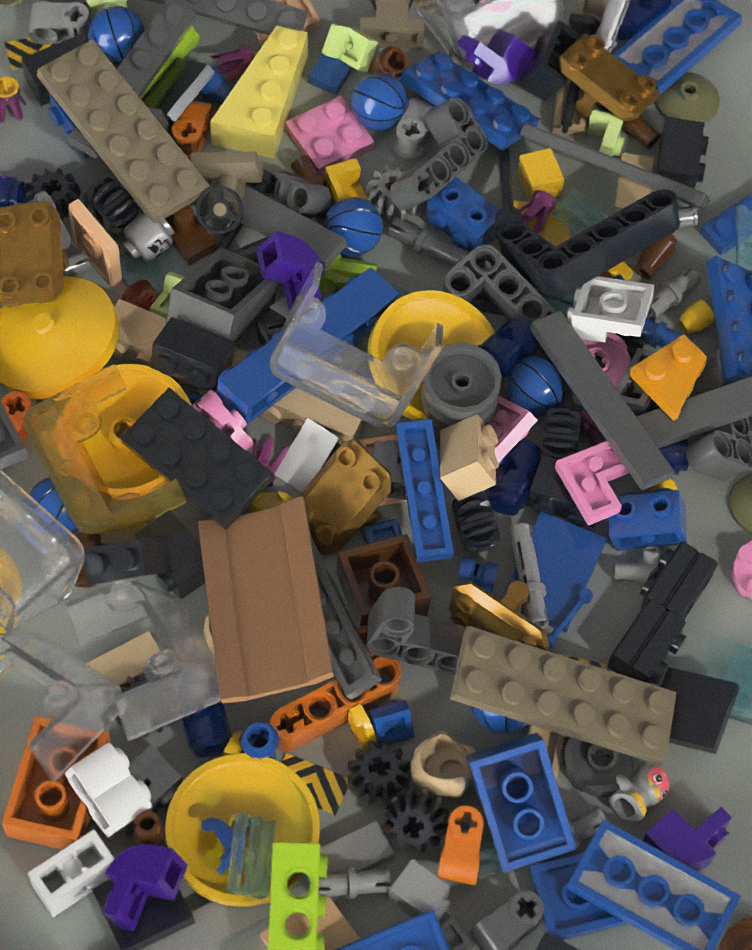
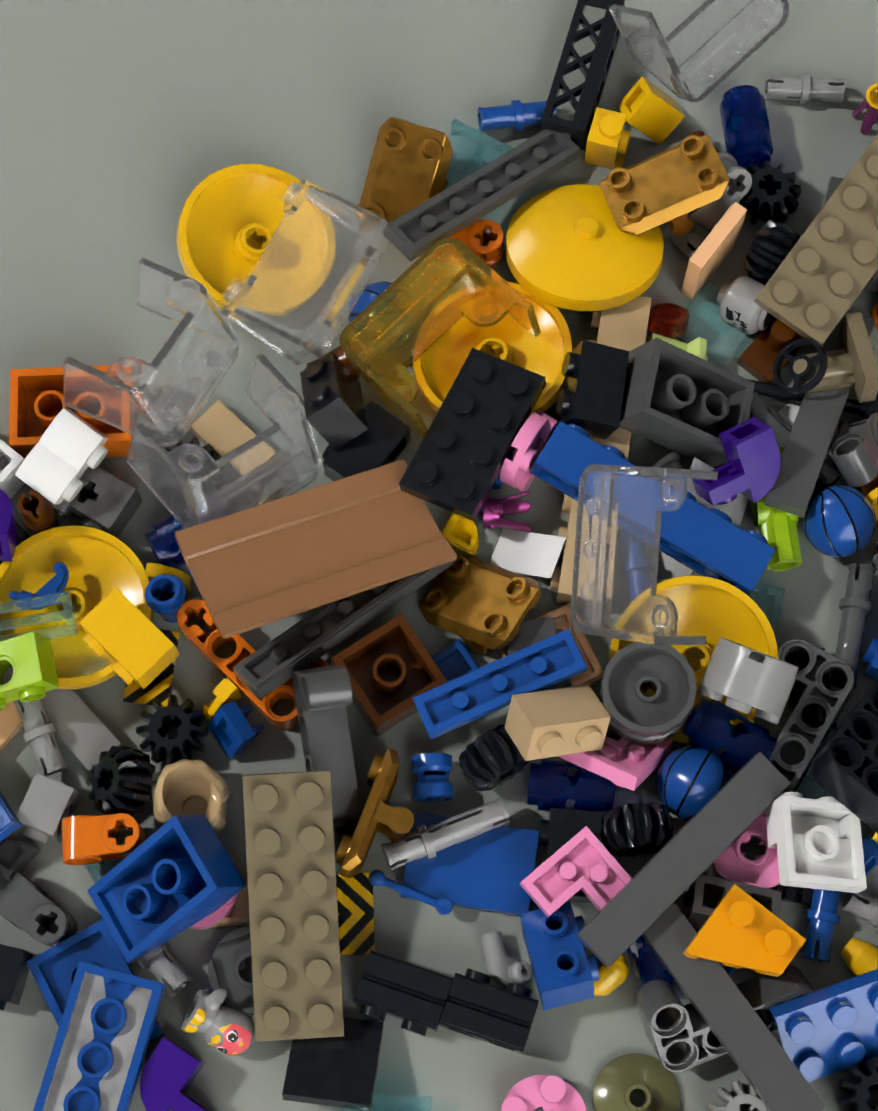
camera: 80 degrees right, 10 degrees up
(296, 774) = (128, 639): none -> yellow brick
(474, 311) = (748, 680): none -> light grey brick

